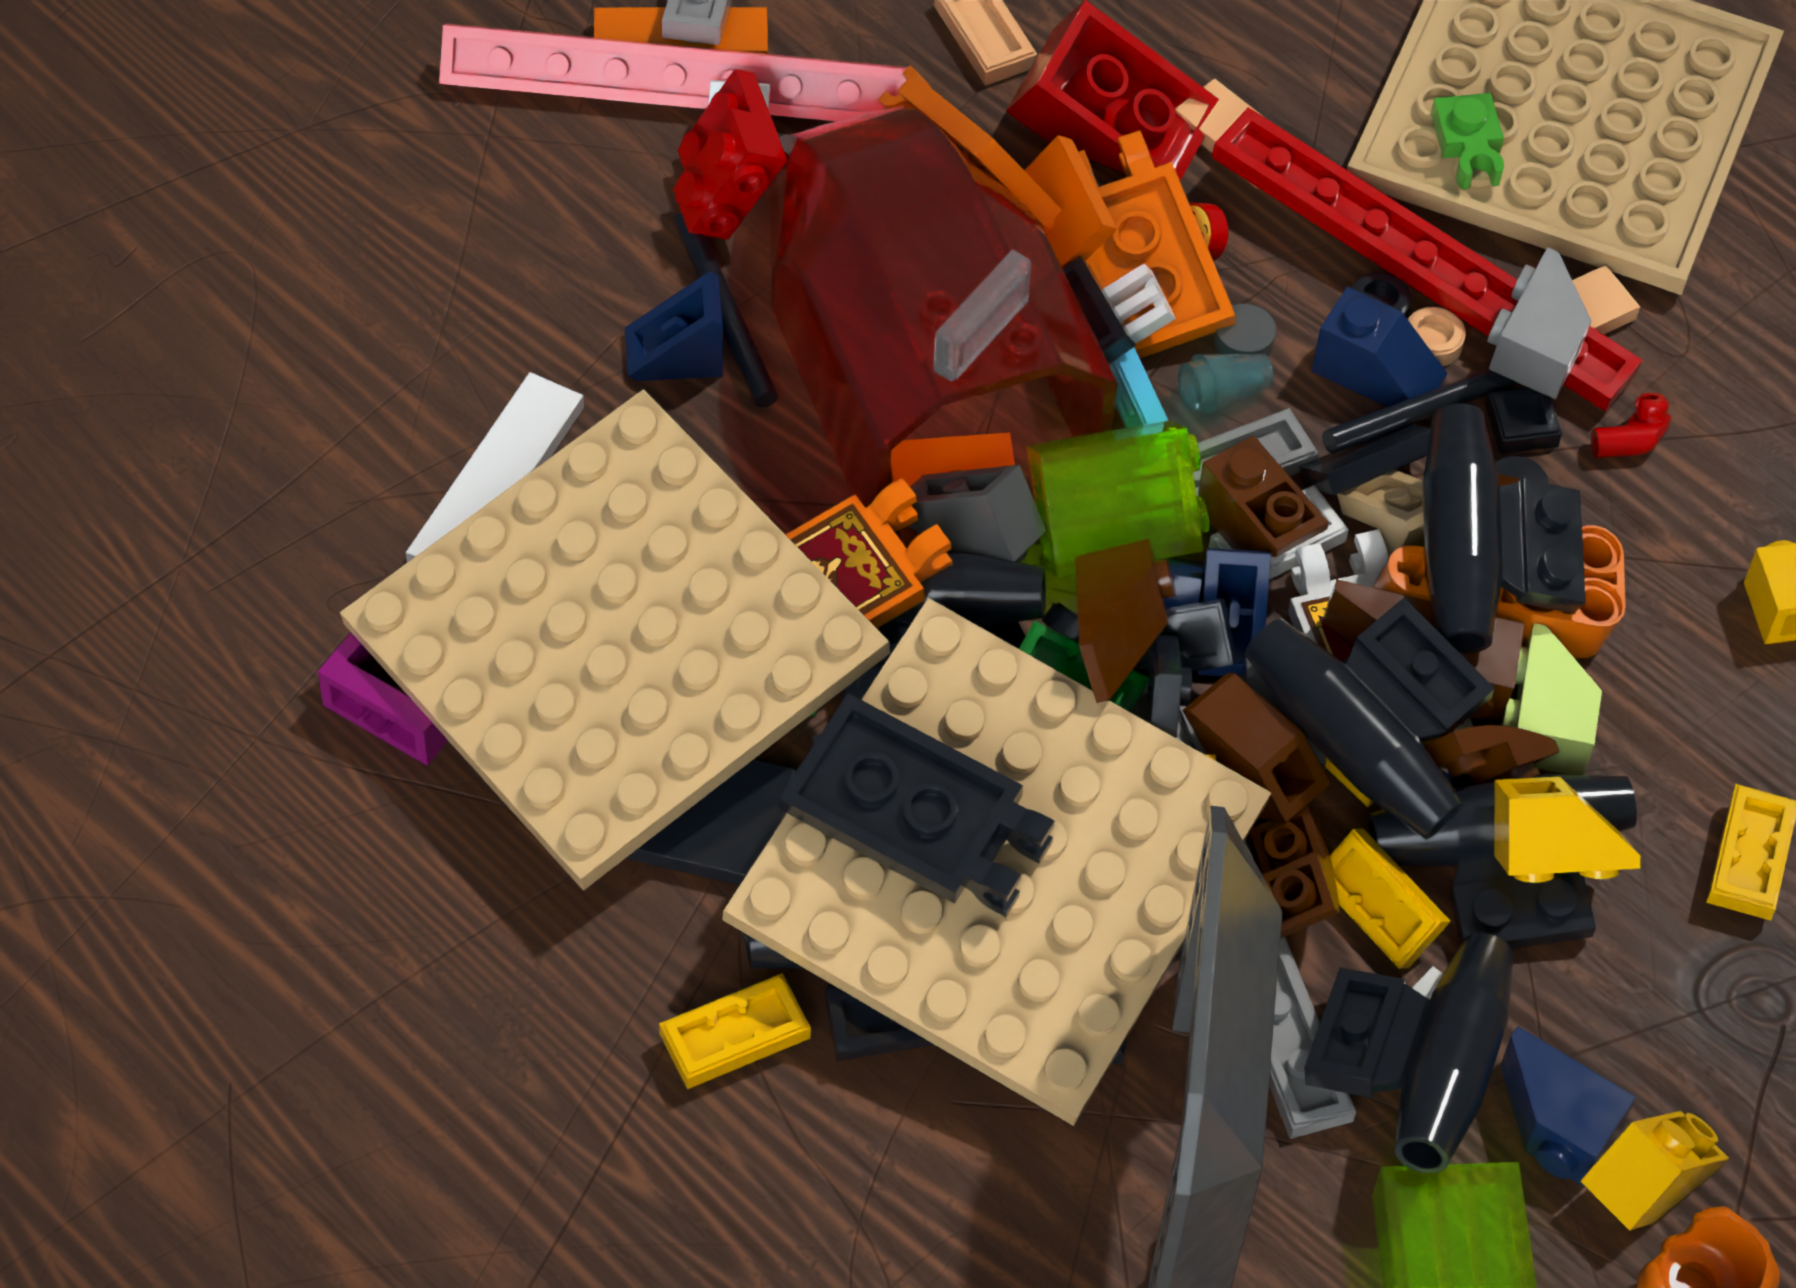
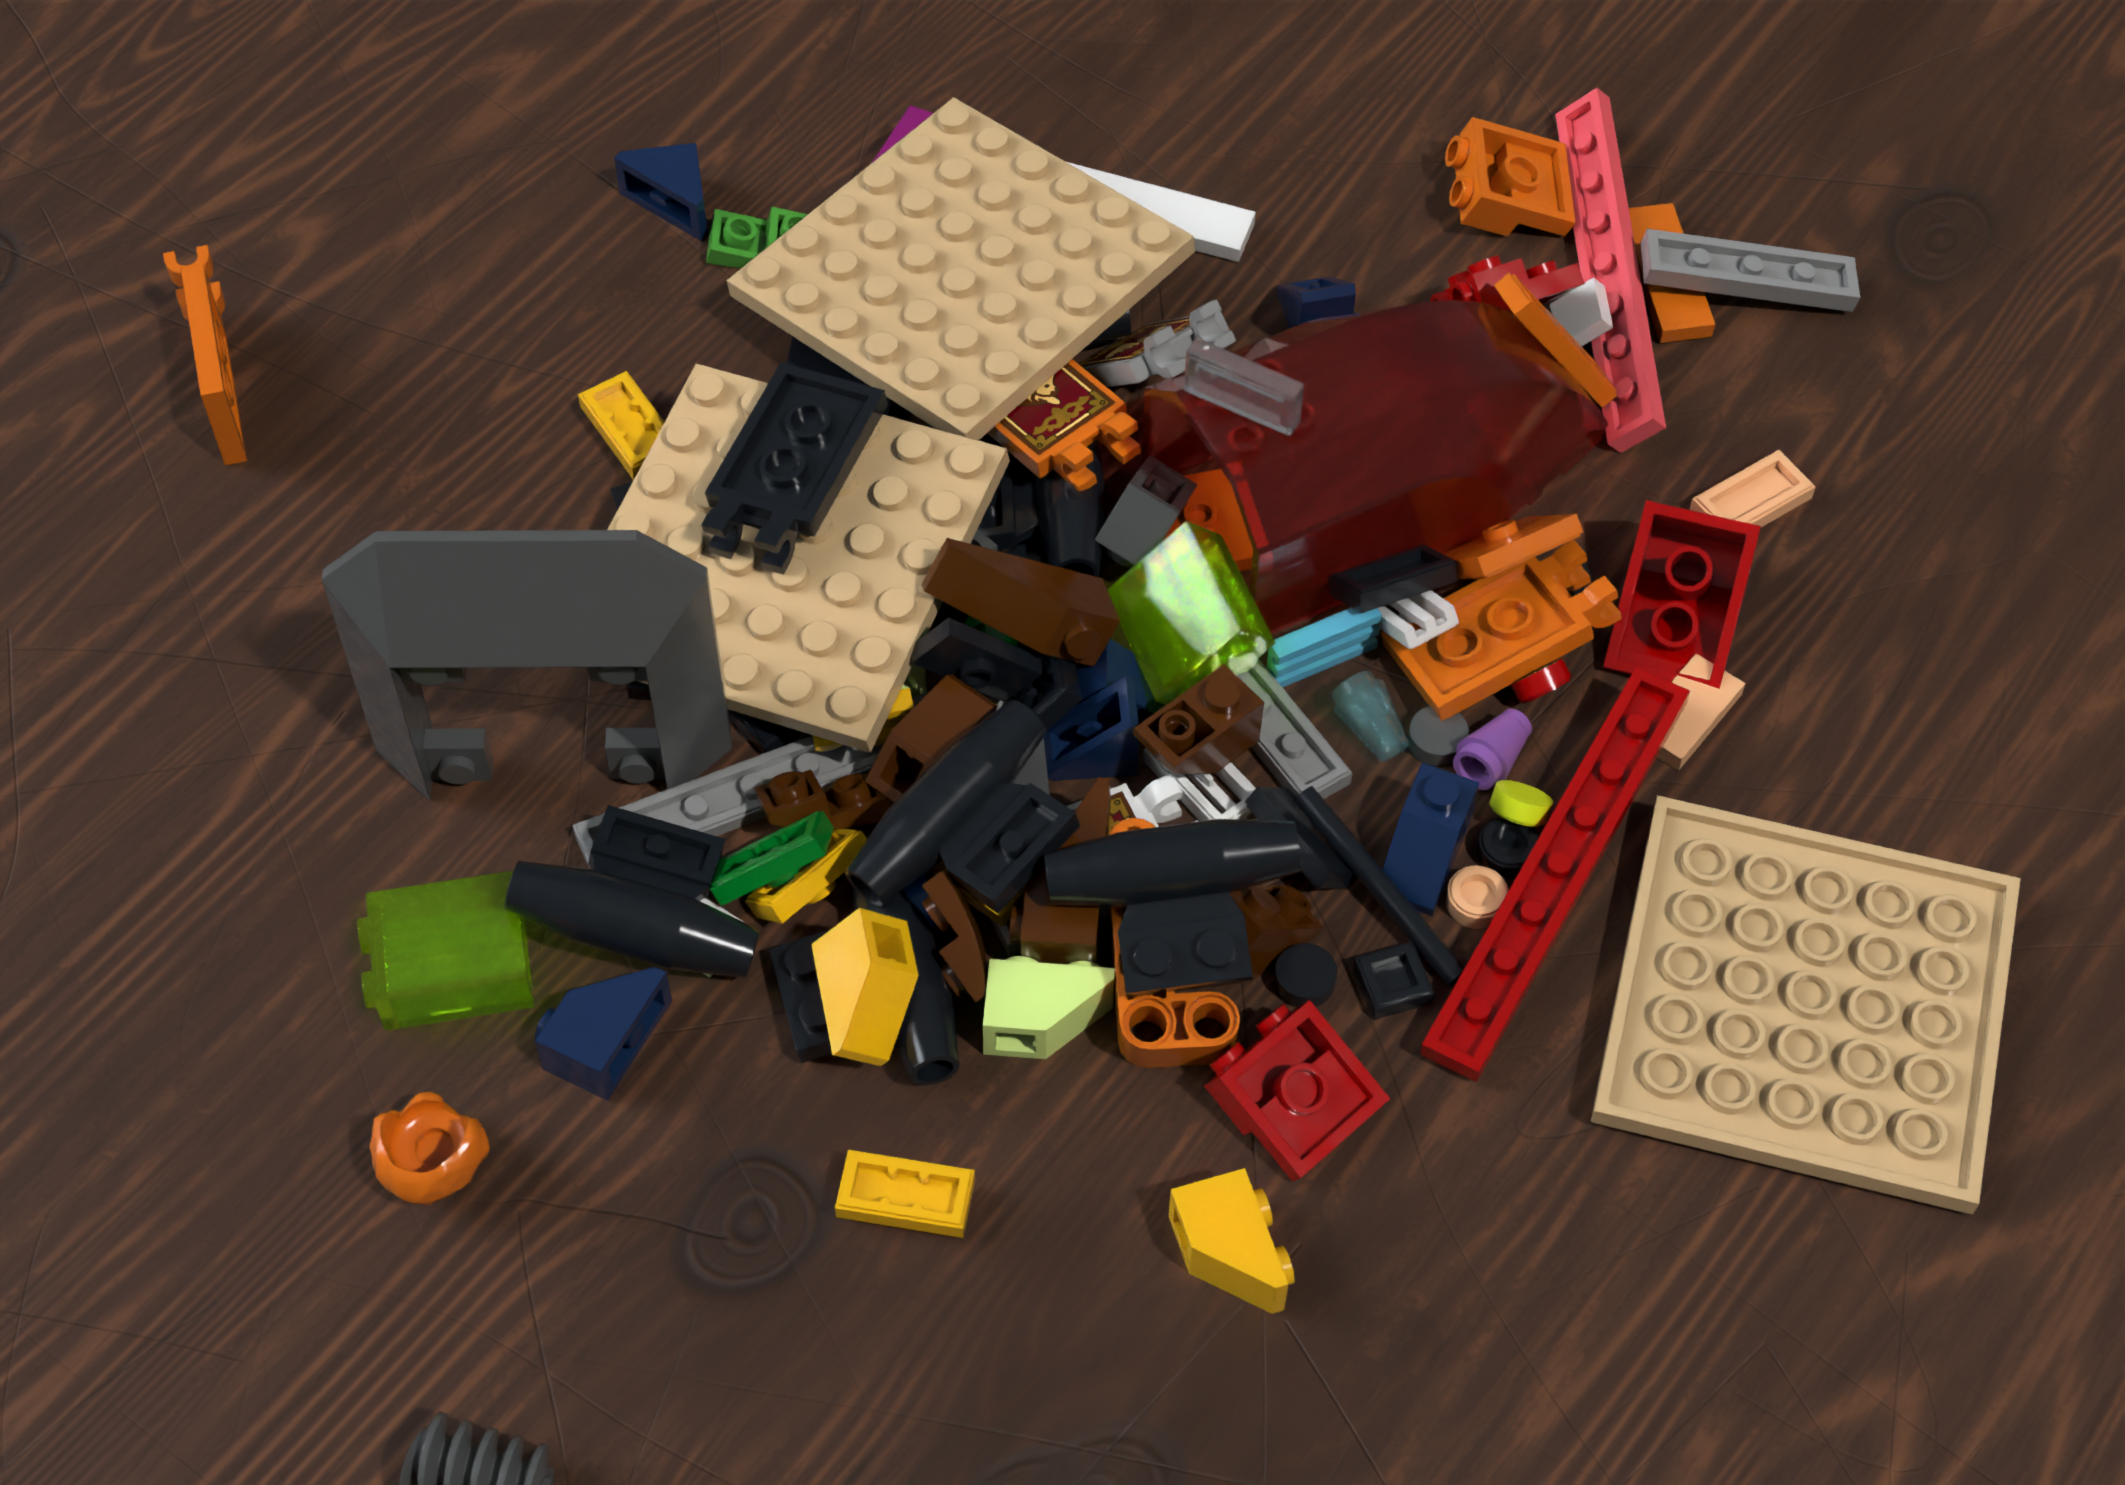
camera: 85 degrees right, 0 degrees up
(370, 951) = (666, 184): none -> dark blue slope
(462, 869) = (740, 238): none -> bright green slope
(539, 135) = (1509, 179): none -> orange plate
(785, 448) = (1158, 347): none -> light grey tile
(815, 111) = (1556, 339): none -> orange tile
(974, 141) = (1549, 456): orange tile -> none
(1276, 287) = (1492, 749): none -> medium lavender cone
(1339, 271) = (1520, 803): none -> neon yellow tile
(1376, 913) = (772, 858): none -> green plate
(1470, 130) = (1726, 890): bright green plate -> none
(1545, 329) = (1474, 957): light grey slope -> none
(1606, 300) = (1557, 1040): light nougat tile -> none
(1640, 432) = (1406, 1090): red arm -> none
(1654, 1167) = (549, 1110): yellow slope -> none
(1655, 506) = (1295, 1088): none -> red plate

